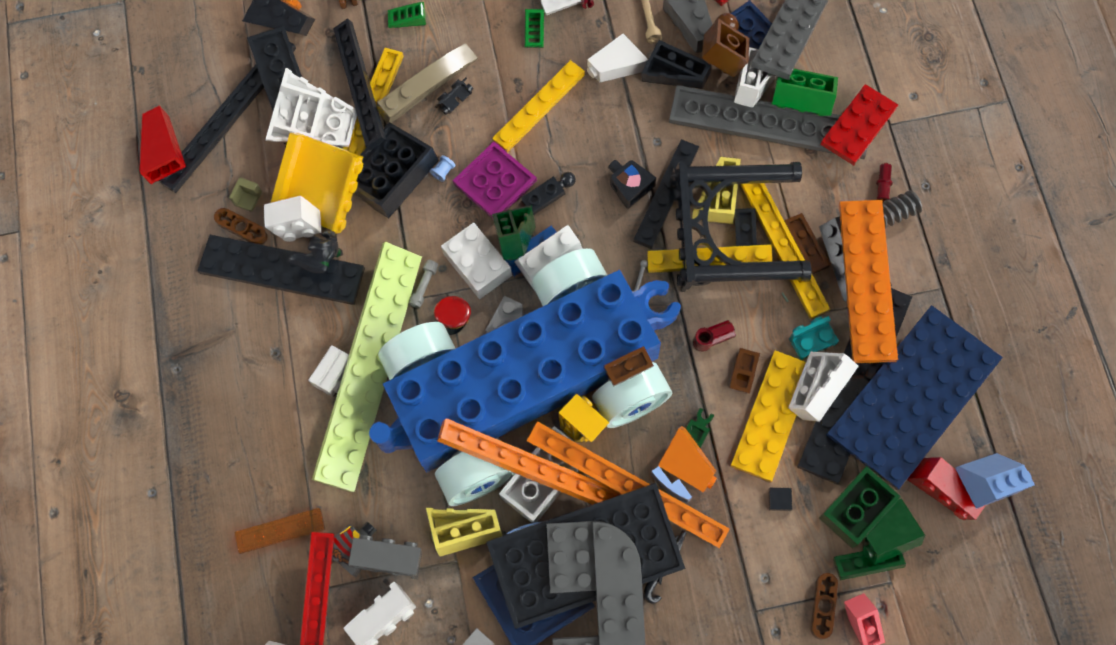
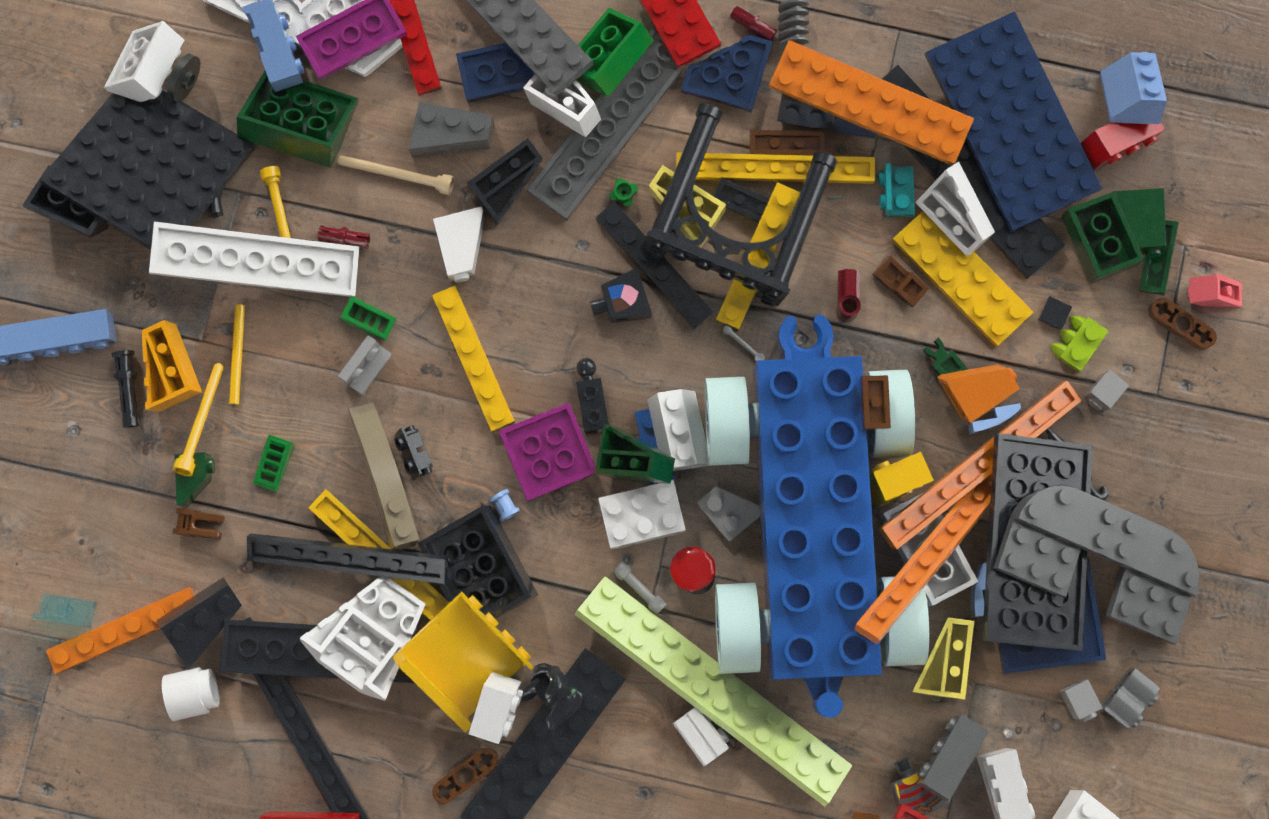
camera: 70 degrees left, 10 degrees up
(226, 29) = (190, 693): none -> white piece
(245, 194) = (428, 753): olive panel -> none
(500, 37) = (365, 365): none -> light grey bracket
(713, 145) = (630, 189): none -> green plate
(726, 46) = (514, 112): reddish brown brick -> none
(736, 564) = (1106, 391): none -> light grey brick
(766, 530) = (1079, 344): none -> lime plate
(836, 181) = (730, 74): none -> dark blue plate

